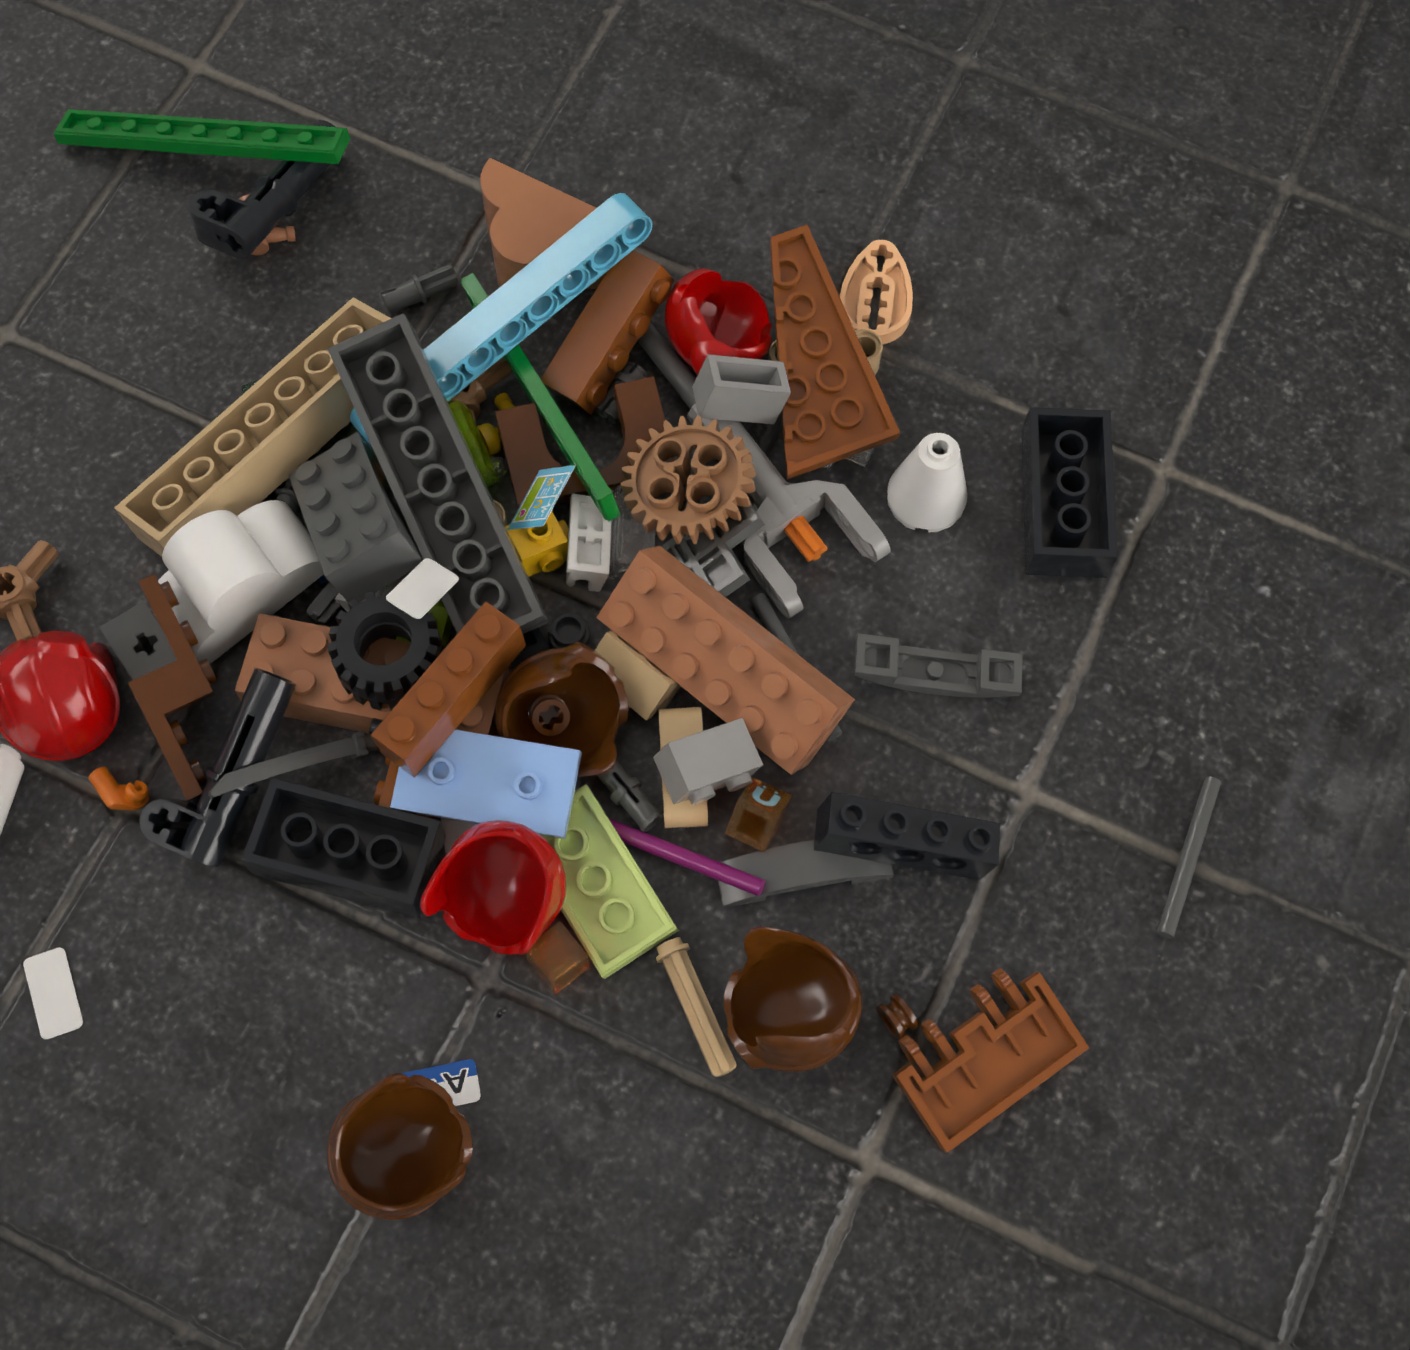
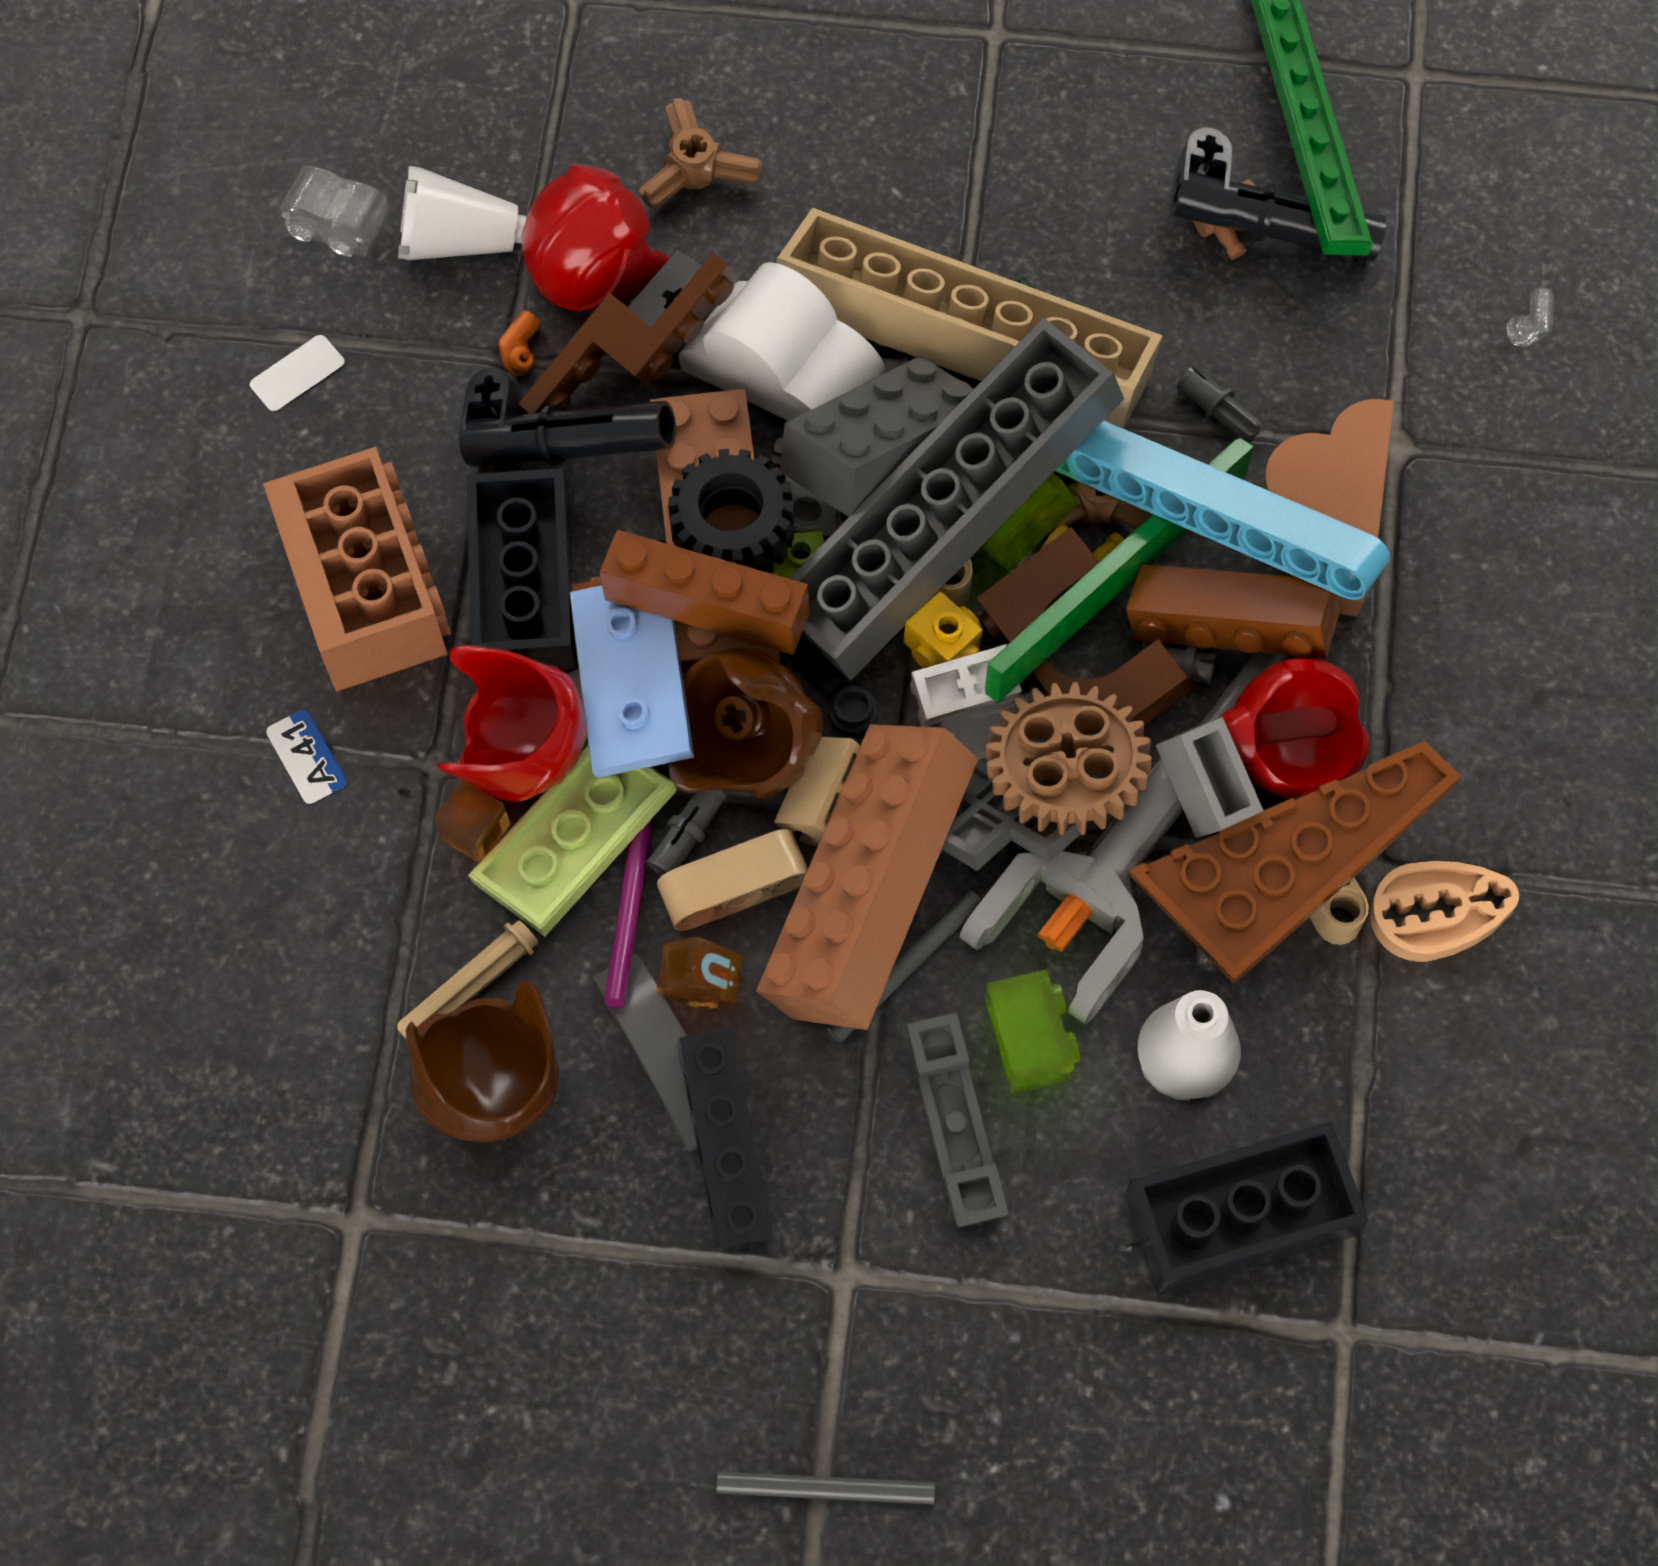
camera: 75 degrees right, 0 degrees up
(272, 987) = (359, 568): none -> nougat brick
(355, 746) = (582, 474): dark grey sword -> none
(398, 1147) = (219, 731): reddish brown piece -> none
(422, 588) = (807, 521): white sticker -> none
(445, 66) = (1536, 324): none -> clear arm
(541, 497) = (980, 610): sticker -> none
(708, 762) = (731, 893): light grey piece -> none
(883, 592) = (1031, 1032): none -> clear neon green piece
(897, 1016) = (519, 1198): reddish brown bush -> none
(996, 1059) = (494, 1316): dark orange hinge -> none

